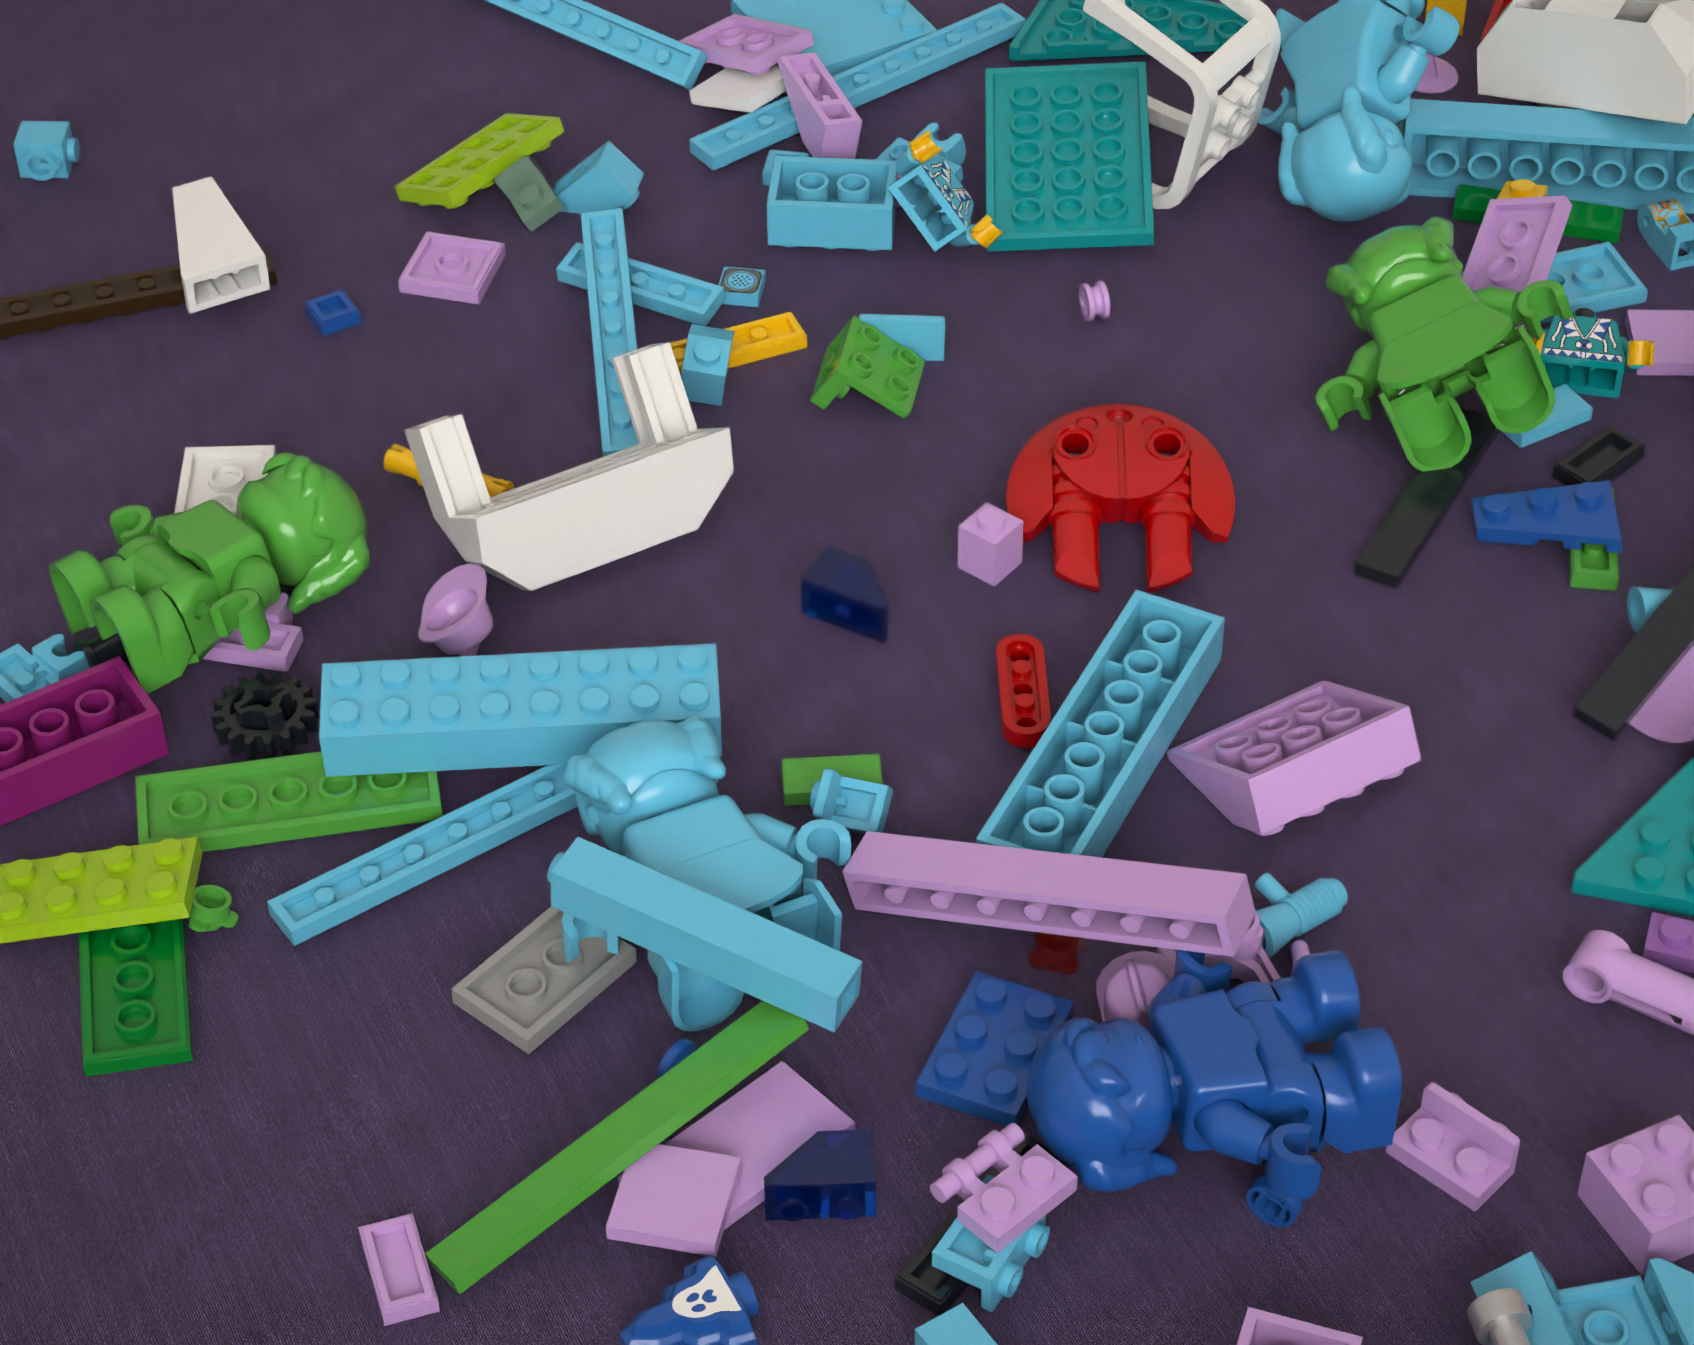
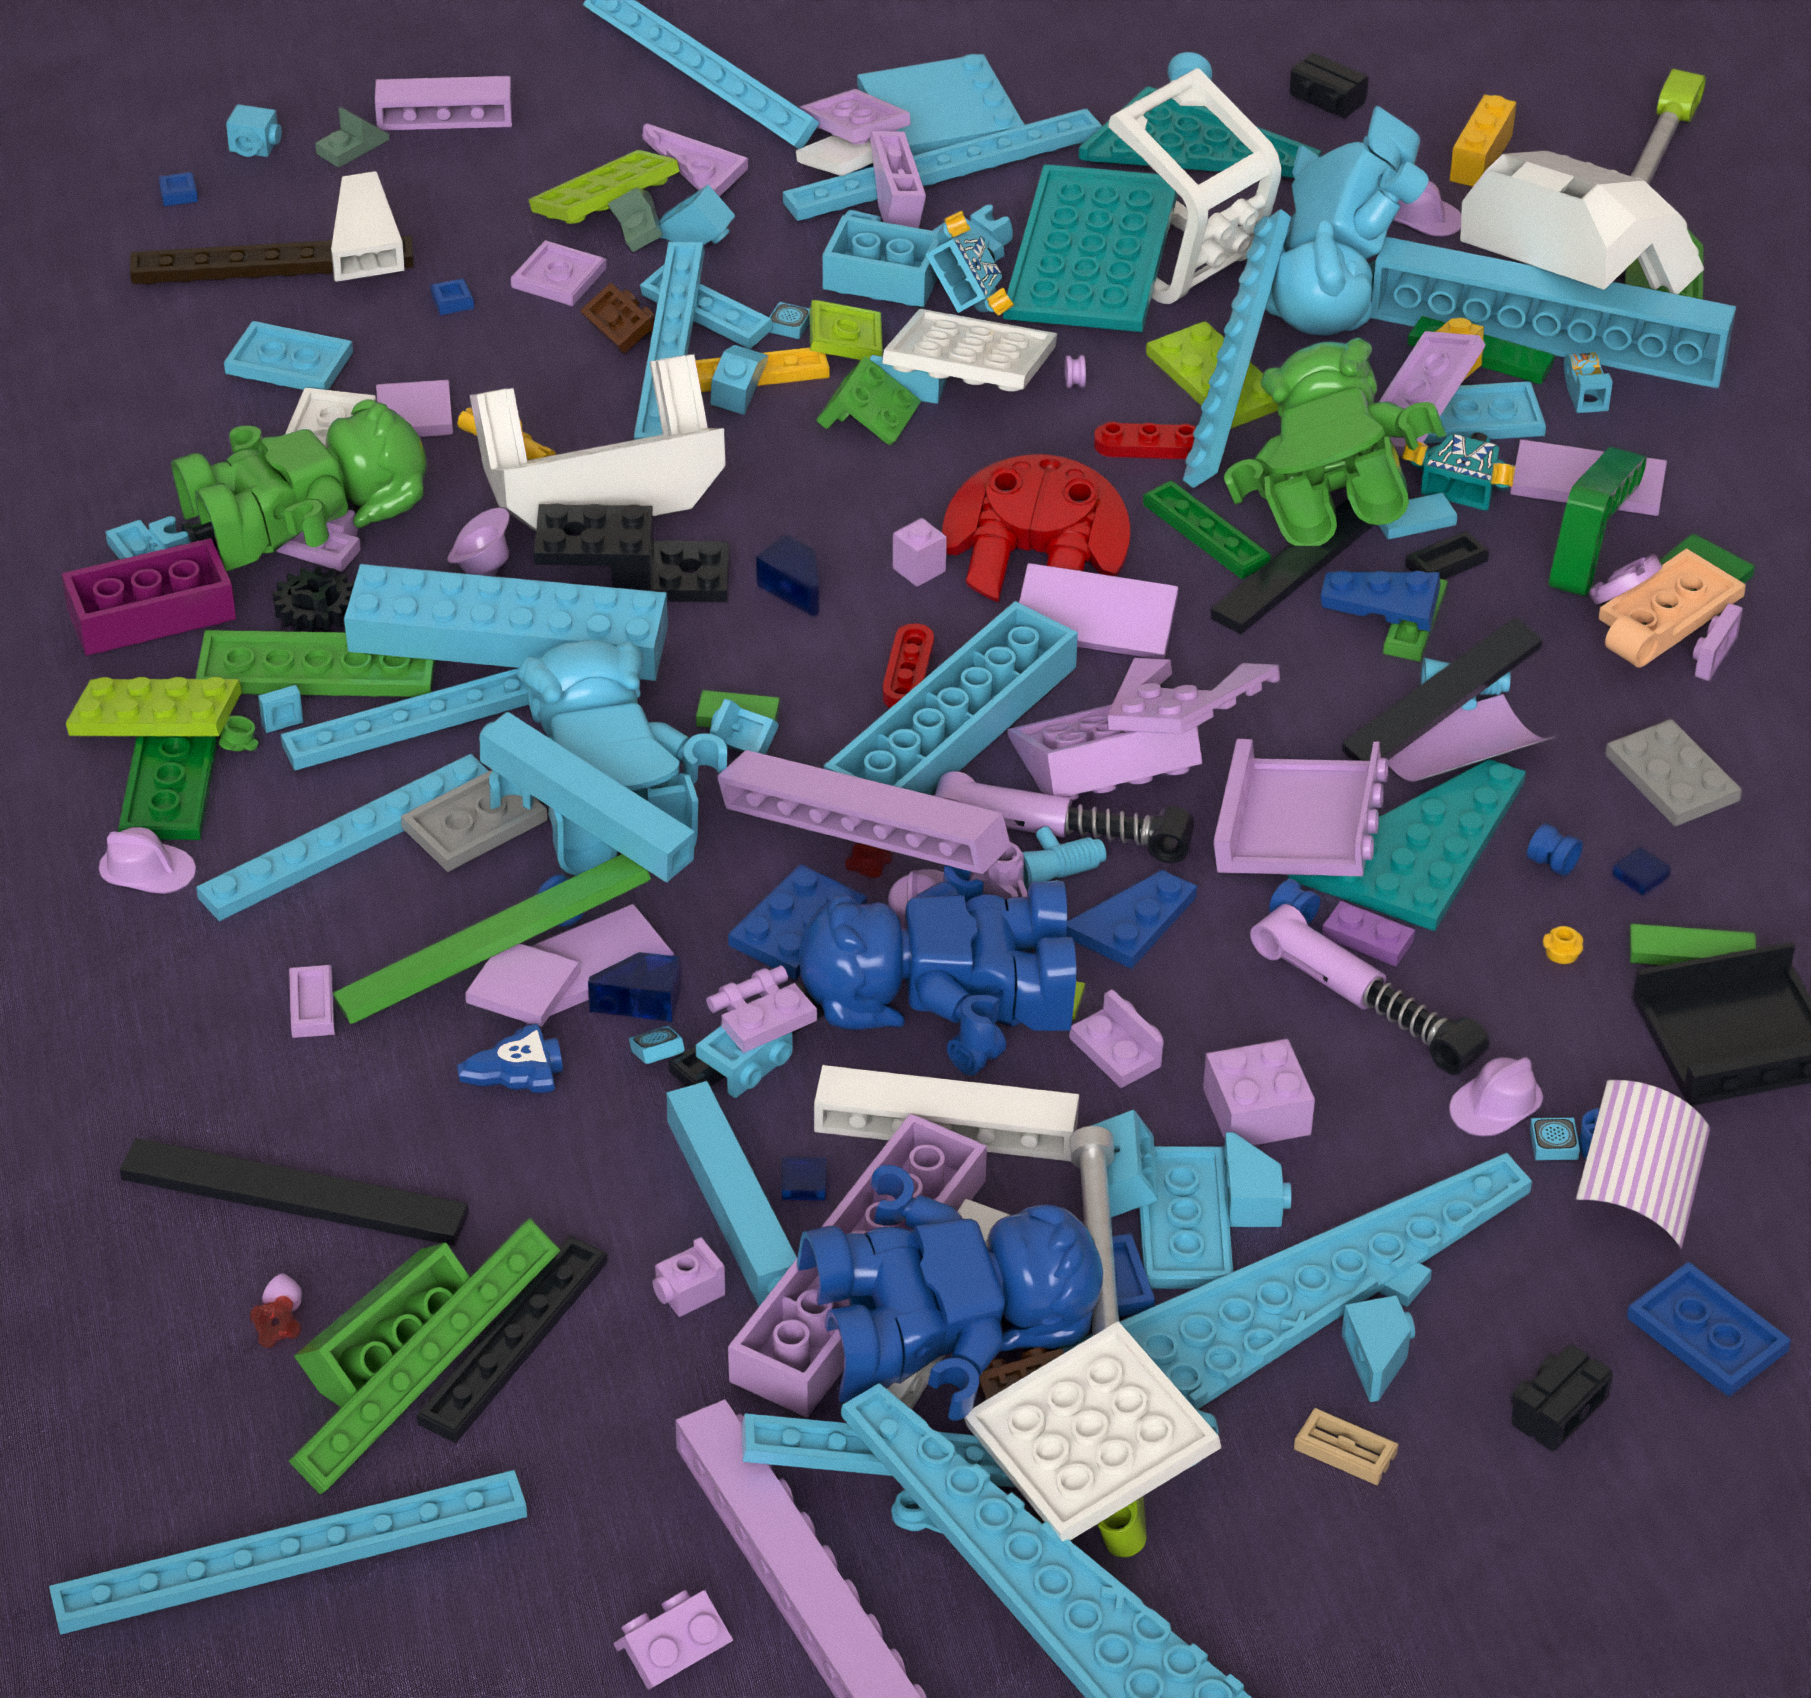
camera: 10 degrees right, 0 degrees up
(128, 1108) = (142, 862): none -> lavender piece
(154, 412) = (288, 357): none -> medium azure plate
(165, 145) = (351, 141): none -> sand green slope
(258, 866) = (280, 709): none -> medium azure tile
(264, 89) = (443, 103): none -> lavender brick
(332, 443) = (422, 404): none -> lavender tile
(366, 1038) = (329, 843): none -> medium azure plate
(542, 310) = (619, 317): none -> reddish brown bracket
(584, 119) = (696, 160): none -> lavender wing
(635, 584) = (625, 541): none -> black bracket
(812, 290) = (845, 330): none -> lime plate
(872, 1256) = (657, 1045): none -> medium azure tile
(969, 292) = (969, 349): none -> white plate
(1205, 370) = (1144, 440): none -> red plate
(1250, 583) = (1104, 609): none -> lavender tile
(1253, 283) = (1191, 360): none -> lime plate
(1281, 252) = (1236, 349): none -> medium azure plate
(1311, 467) = (1206, 529): none -> green tile
(1327, 1284) = (996, 1115): none -> white brick
(1376, 700) = (1147, 707): none -> lavender wing
(1409, 857) = (1164, 833): none -> piece
(1412, 974) = (1133, 919): none -> blue wing
(1568, 808) = (1299, 814): none -> lavender panel
(1597, 916) = (1291, 893): none -> blue wheel

